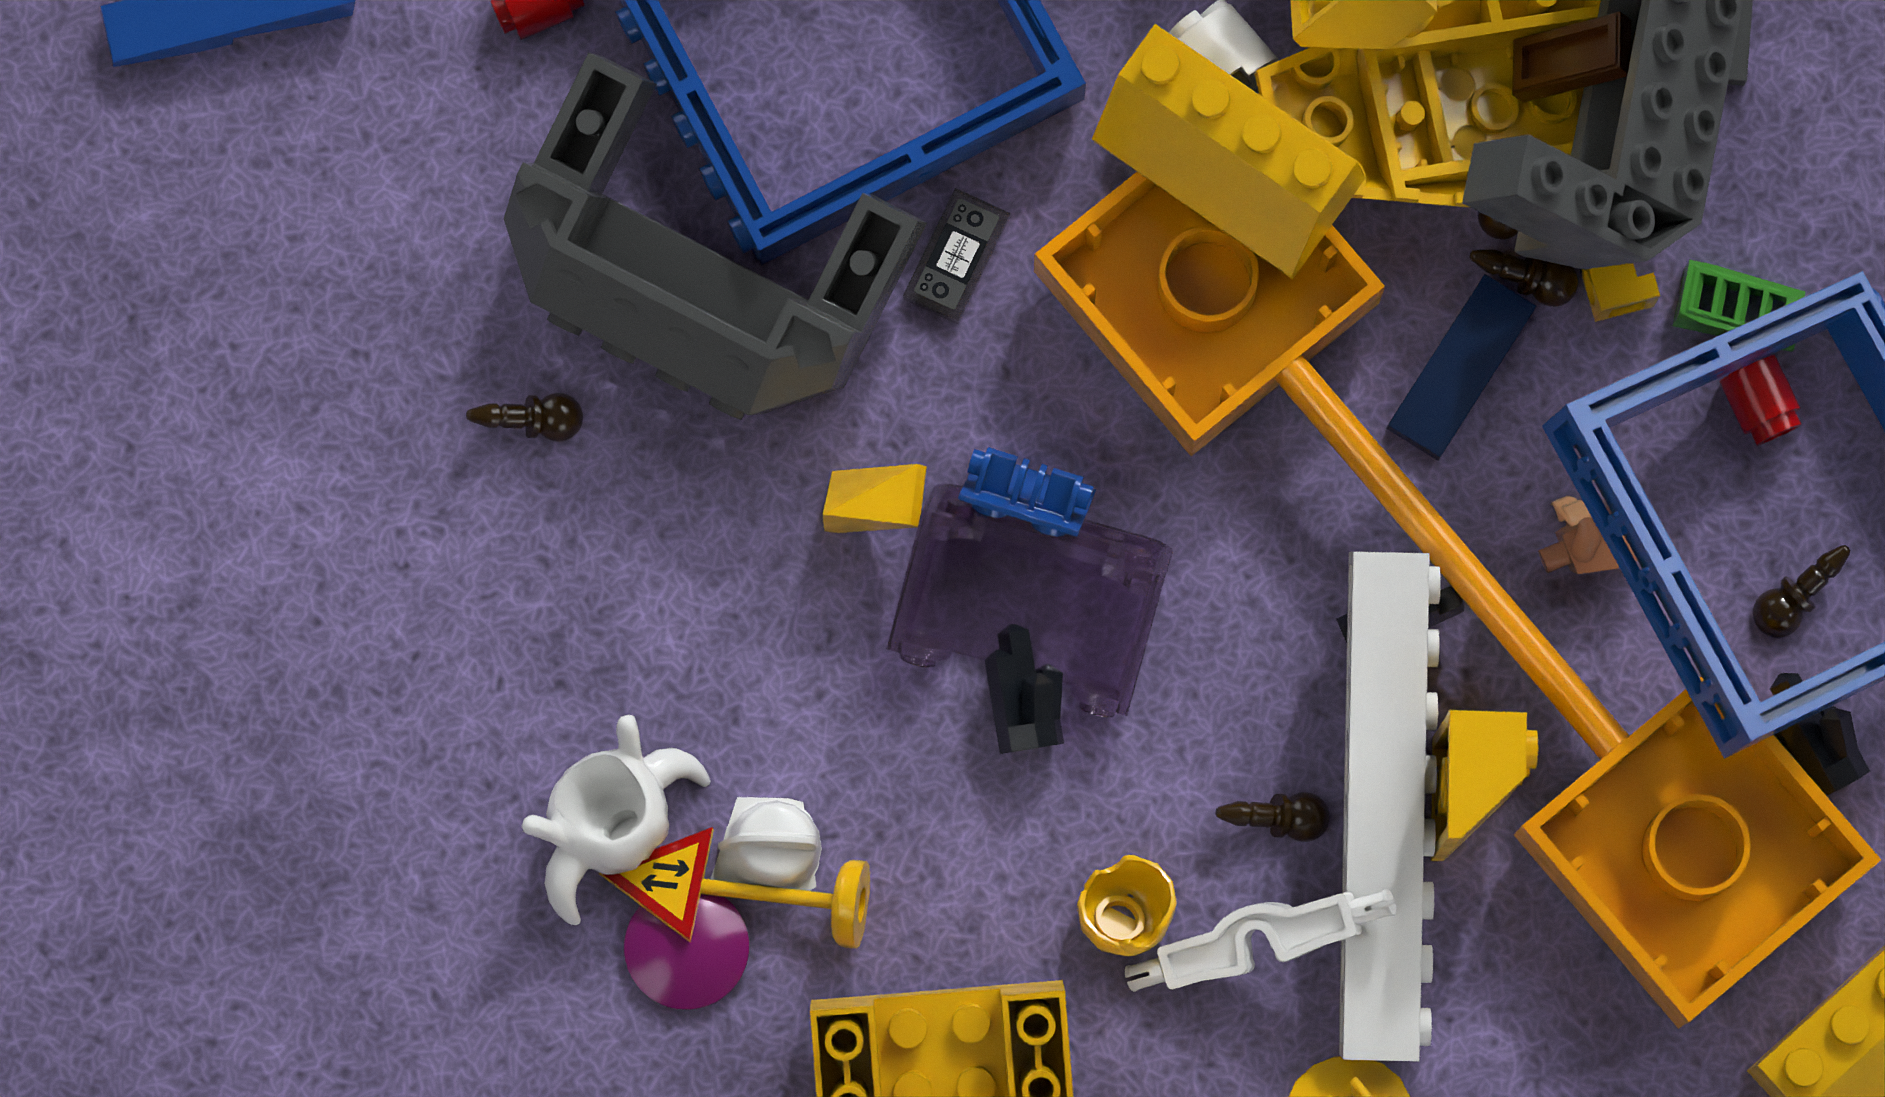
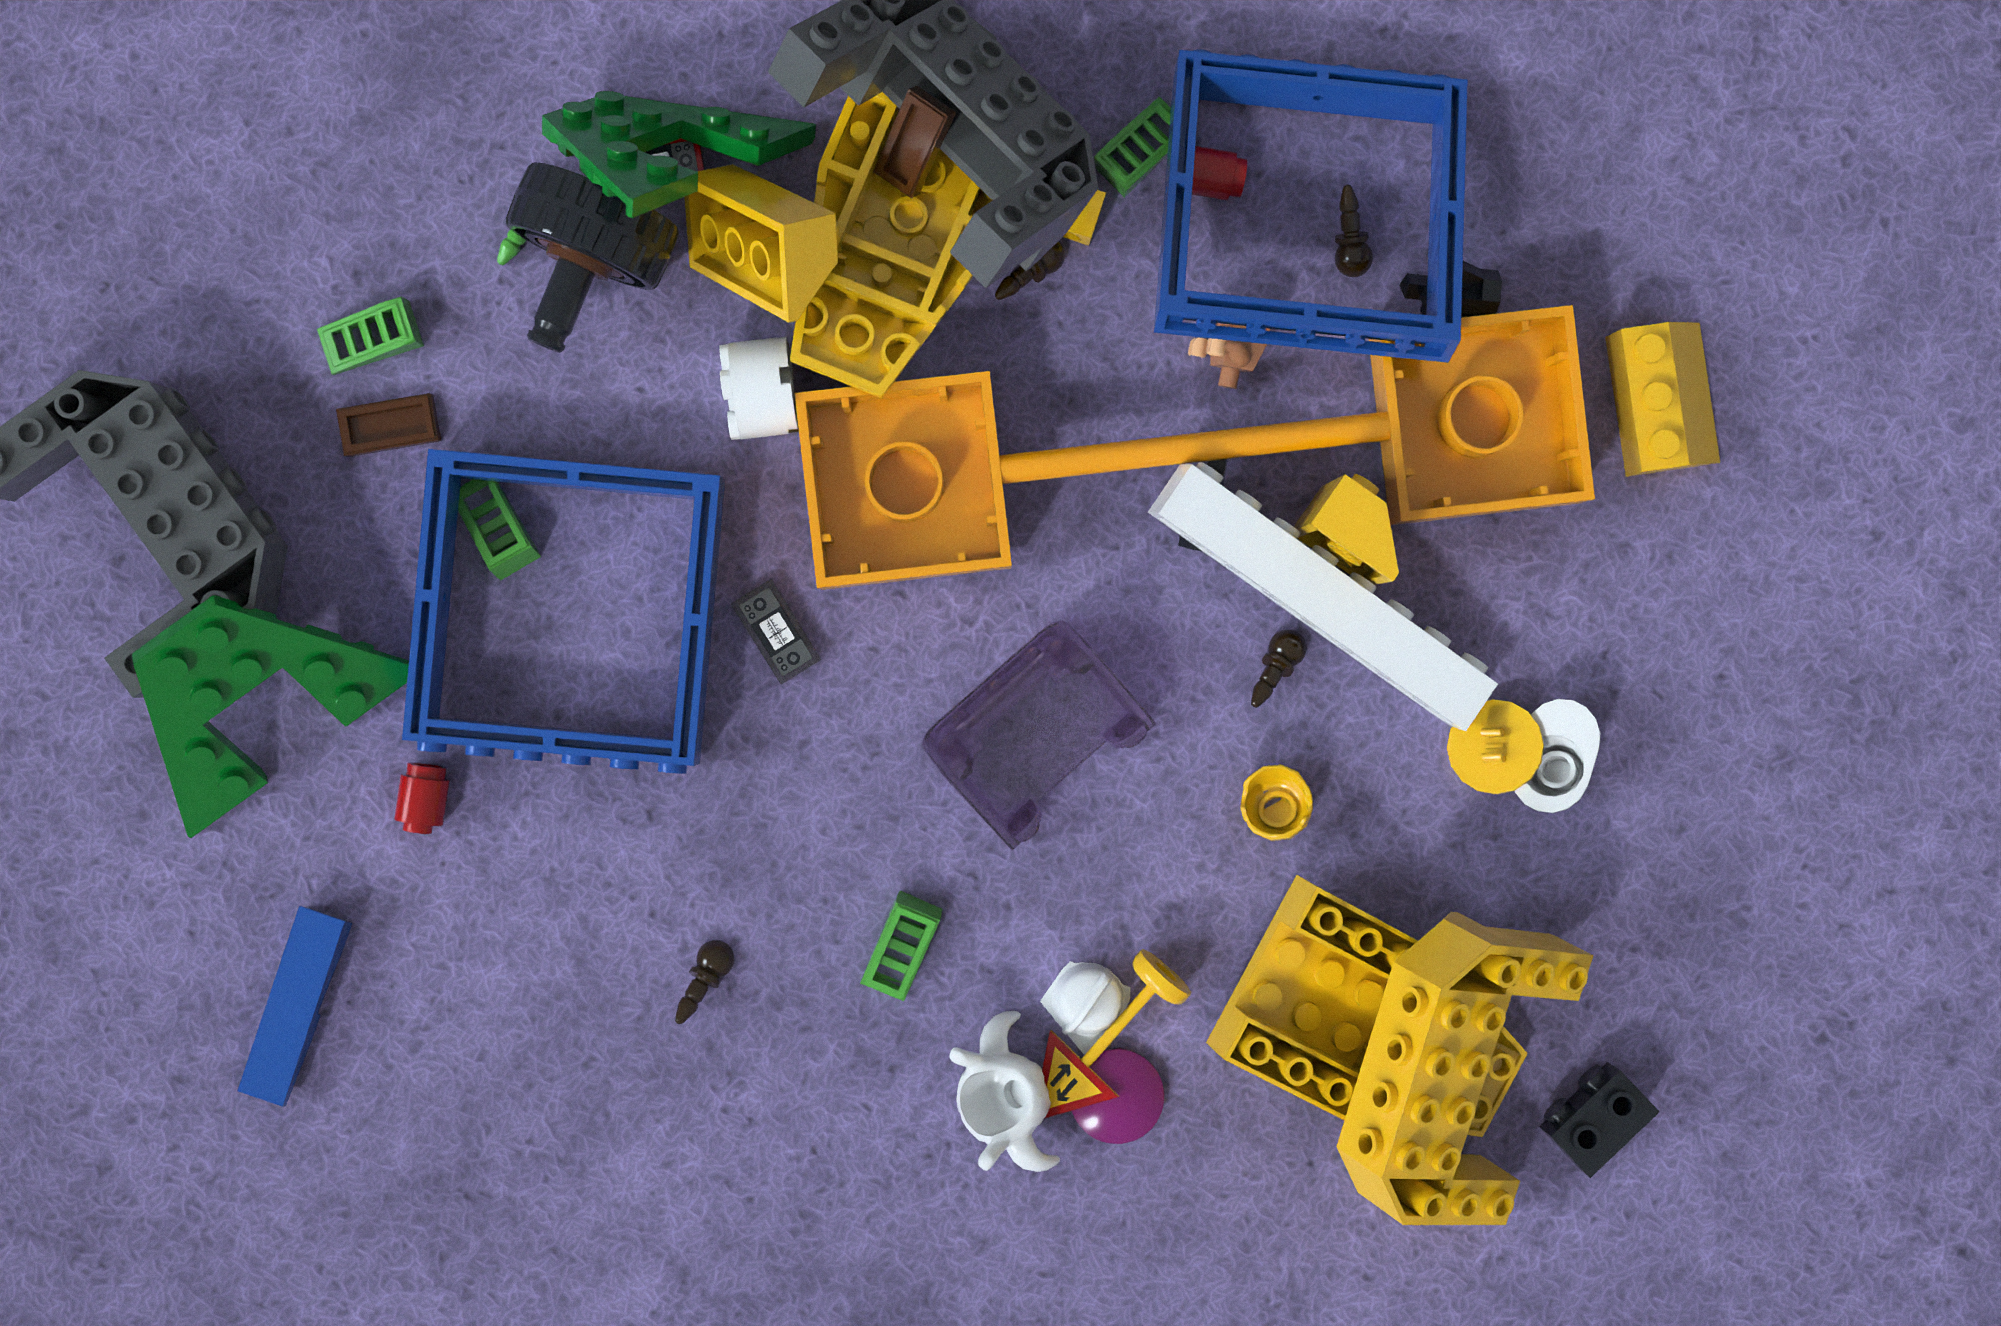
camera: 60 degrees left, 10 degrees up
(673, 298) = (683, 842): dark grey wedge -> none
(753, 598) = (914, 909): none -> bright green slope
(874, 498) = (907, 794): yellow slope -> none
(1001, 488) = (970, 693): blue hinge -> none
(1022, 698) = (1099, 780): black rock -> none
(1226, 151) = (834, 418): yellow slope -> none
(1288, 929) = (1364, 712): white piece -> none
(1461, 367) = (1063, 352): dark blue tile -> none

